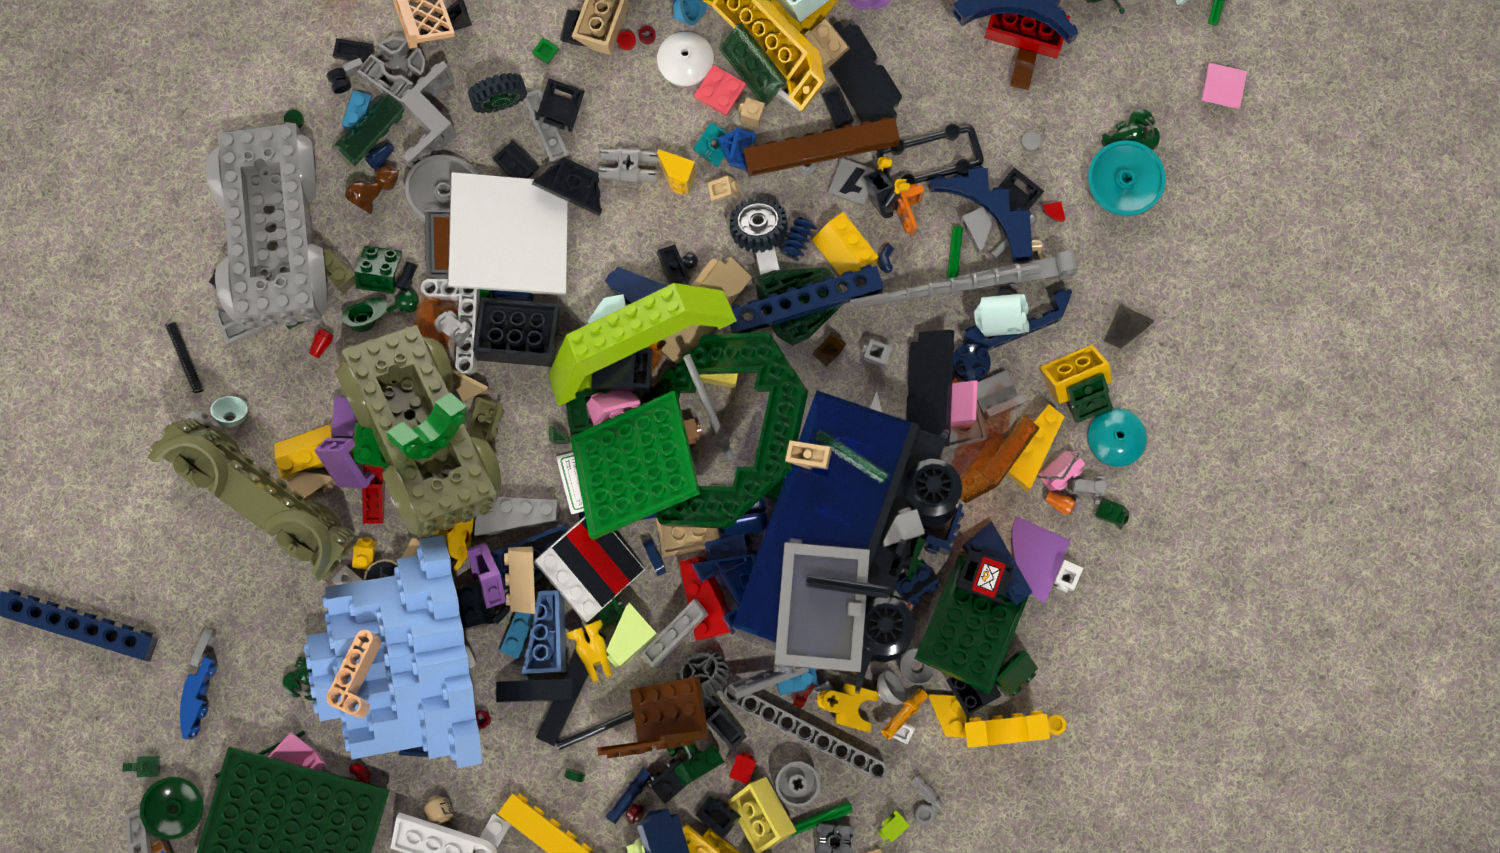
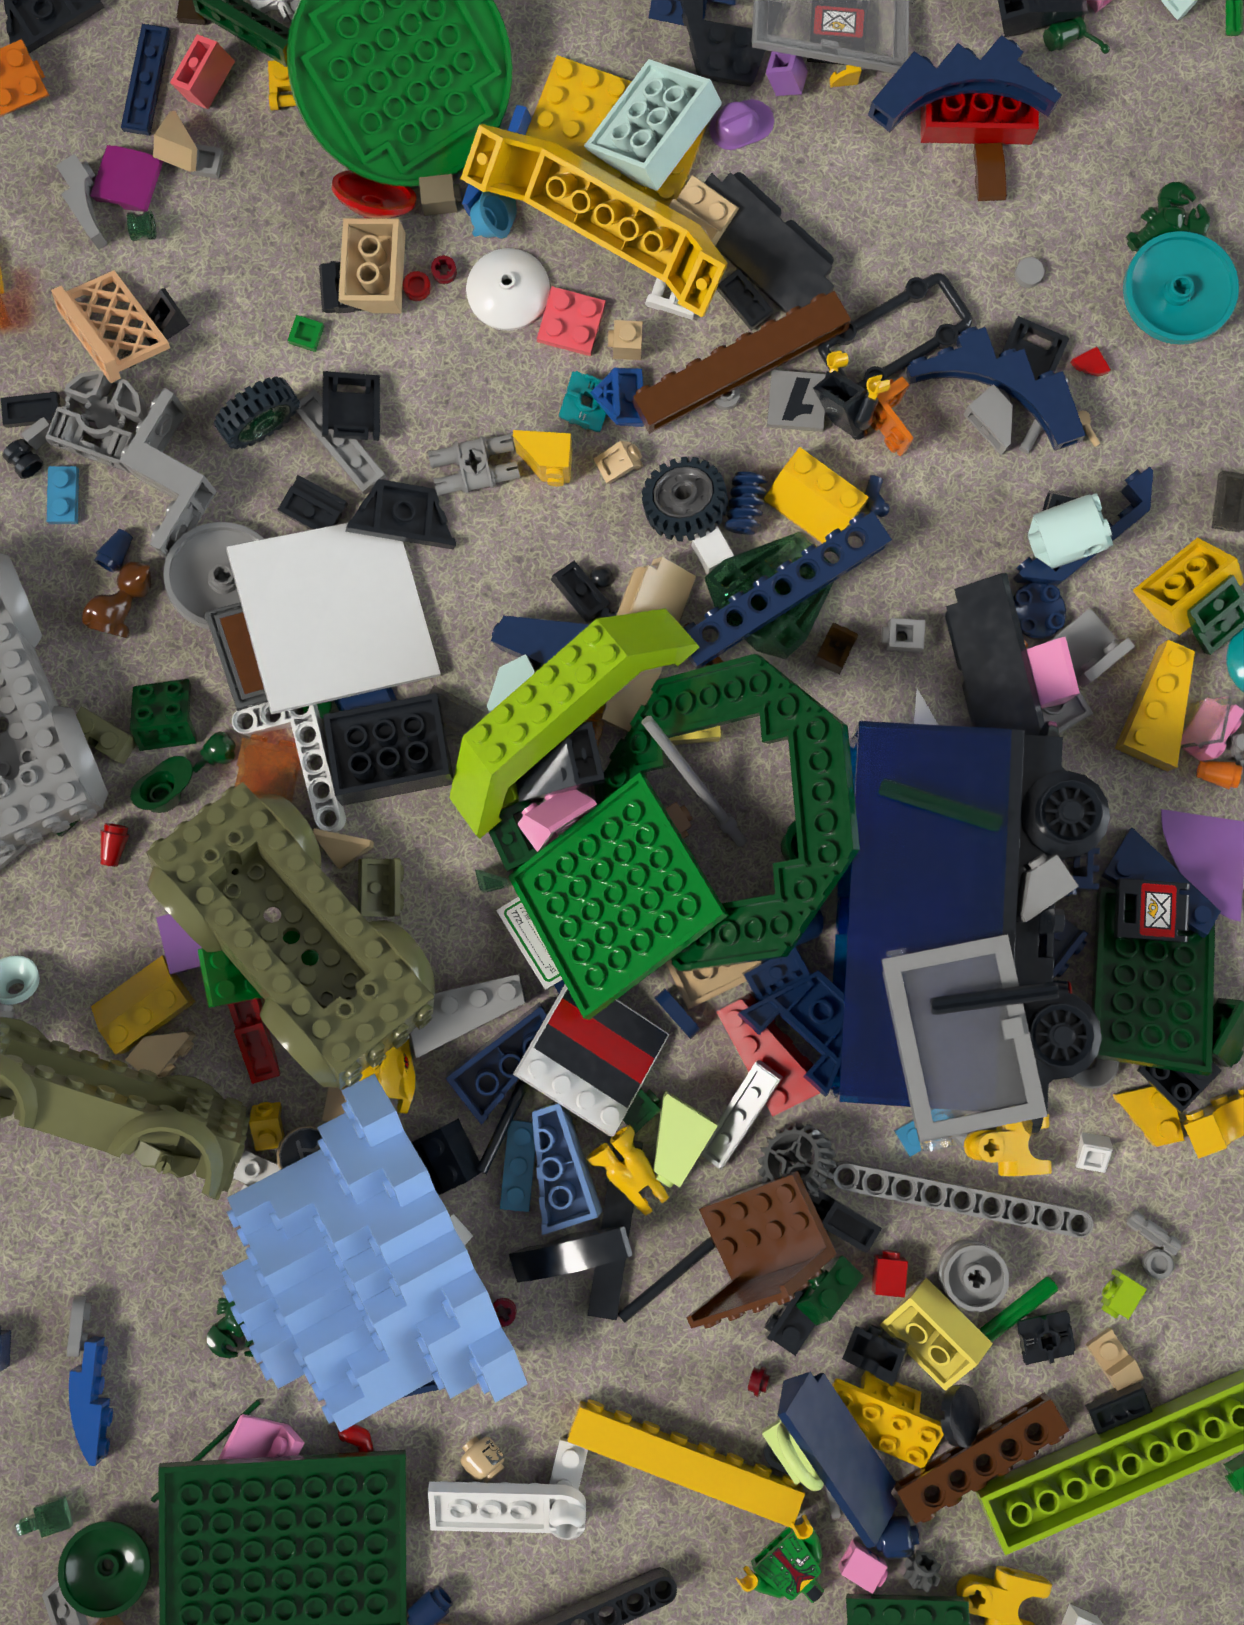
camera: 15 degrees left, 5 degrees up
(340, 465) = (184, 1005): medium lavender panel -> none
(357, 672) = (314, 1317): light nougat beam -> none
(368, 130) = (87, 518): clear green wedge -> none
(405, 281) = (206, 720): black pin -> none
(433, 432) = (315, 937): green brick -> none
(449, 325) = (296, 771): light grey piece -> none
(485, 569) = (463, 1123): medium lavender panel -> none
(520, 579) = (503, 1105): tan slope -> none
(574, 775) = (658, 1352): dark green tile -> none
(634, 788) = (746, 1346): dark blue pin -> none
(752, 64) = (608, 269): clear green tile -> none
(761, 681) = (879, 1149): light grey tile -> none
(799, 701) = (941, 1156): clear red hand -> none
(808, 455) = (881, 821): tan slope -> none
(891, 688) = (1065, 1105): light grey piece -> none
(910, 707) = (1096, 1122): light orange pin -> none
(955, 249) = (970, 463): green axle -> none
(996, 460) = (1127, 740): clear orange panel -> none
(1060, 266) = (1123, 440): light grey piece -> none

